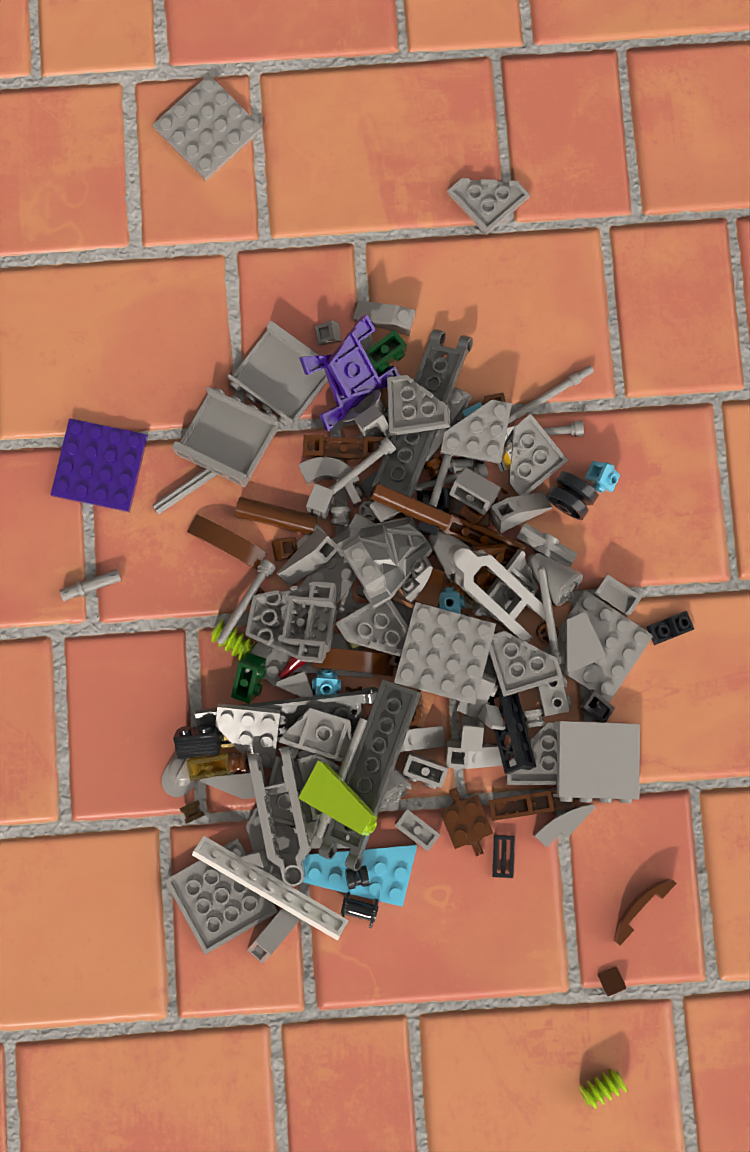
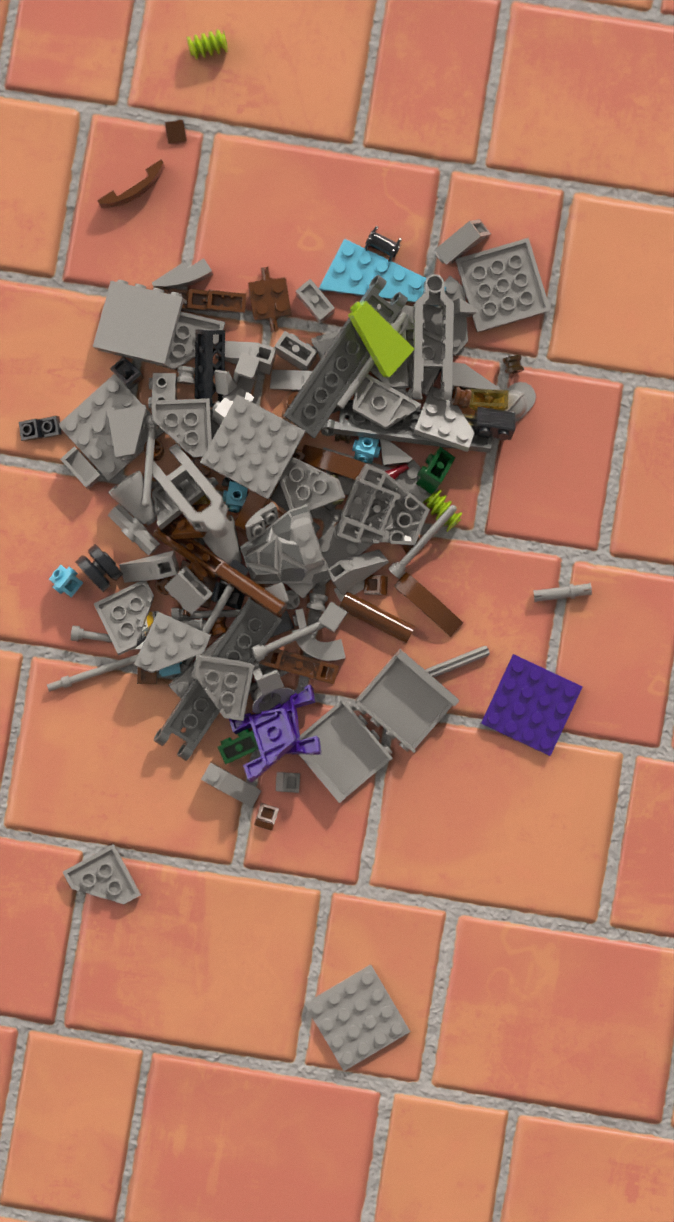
camera: 170 degrees left, 5 degrees up
(270, 888) = (457, 280): white plate -> none
(341, 296) = (266, 816): none -> reddish brown slope
(352, 878) = (383, 270): black wheel -> none
(503, 856) = (252, 259): black tile -> none

